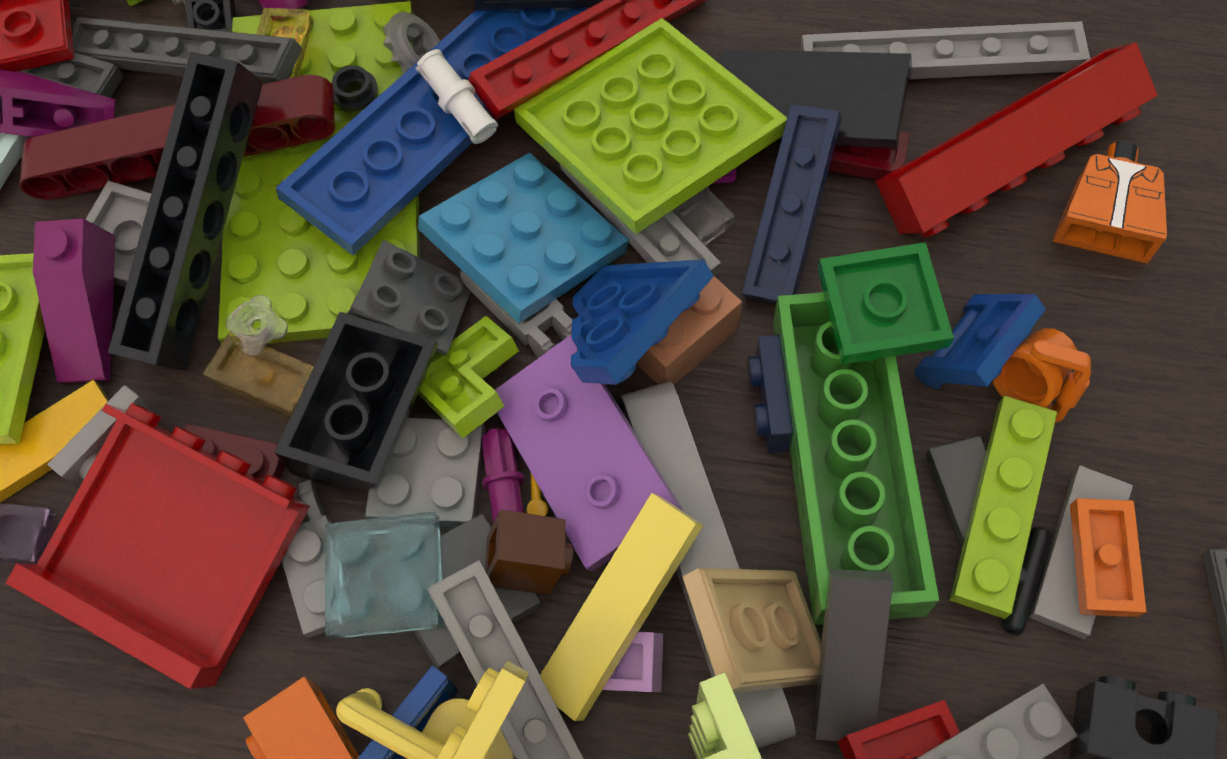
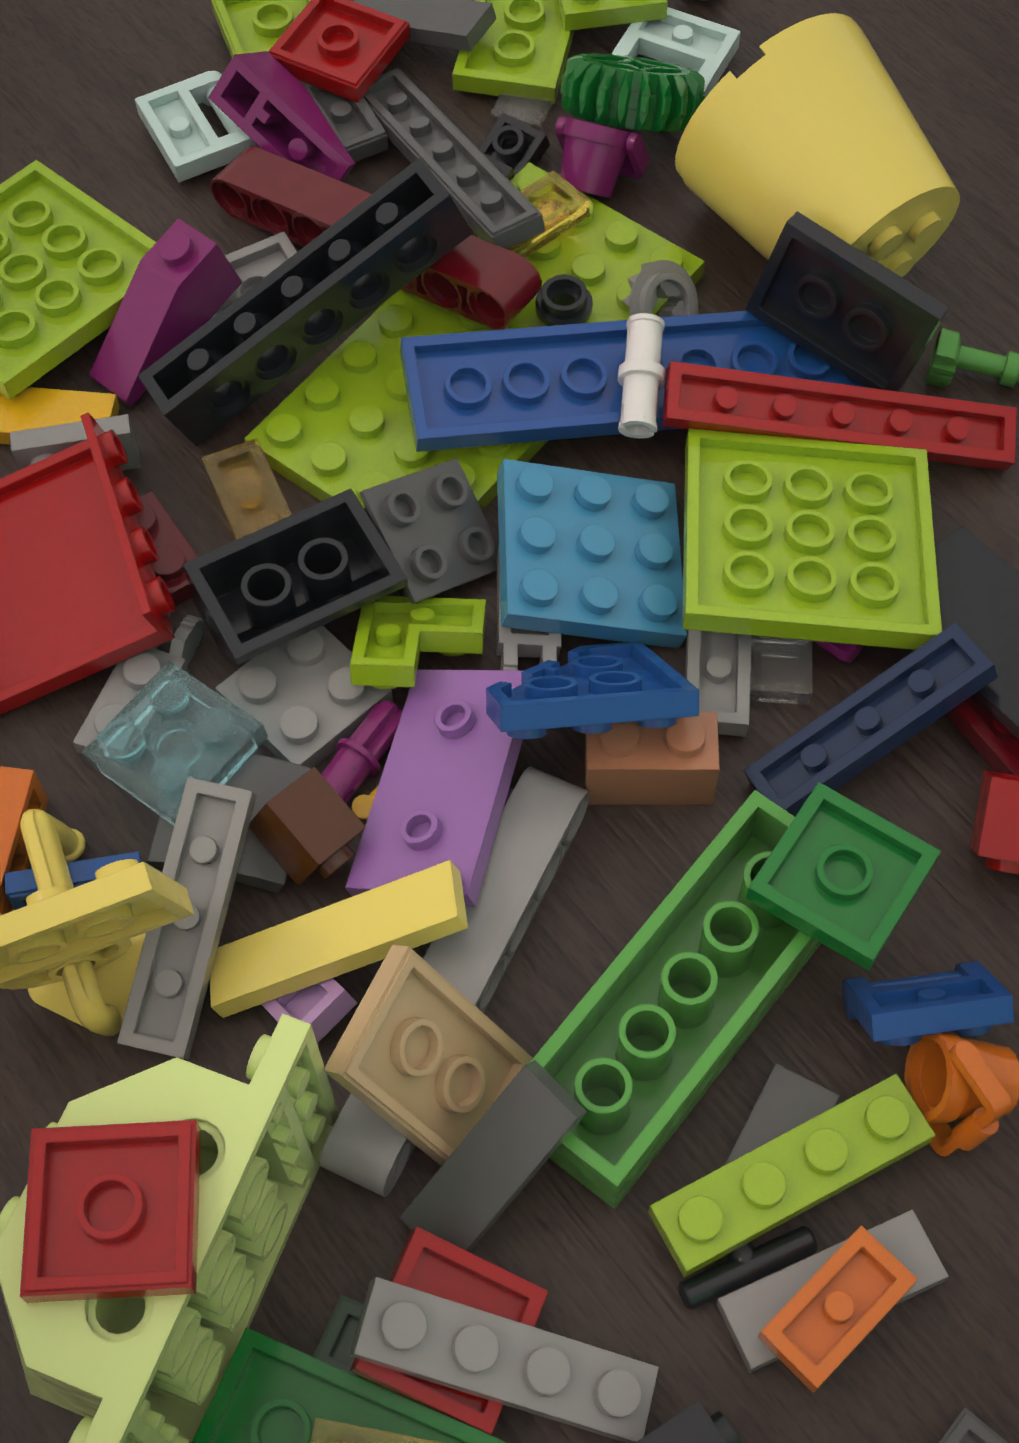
camera: 40 degrees right, 5 degrees down
(242, 320) = (270, 437): clear plate -> none
(773, 415) = (678, 859): dark blue plate -> none

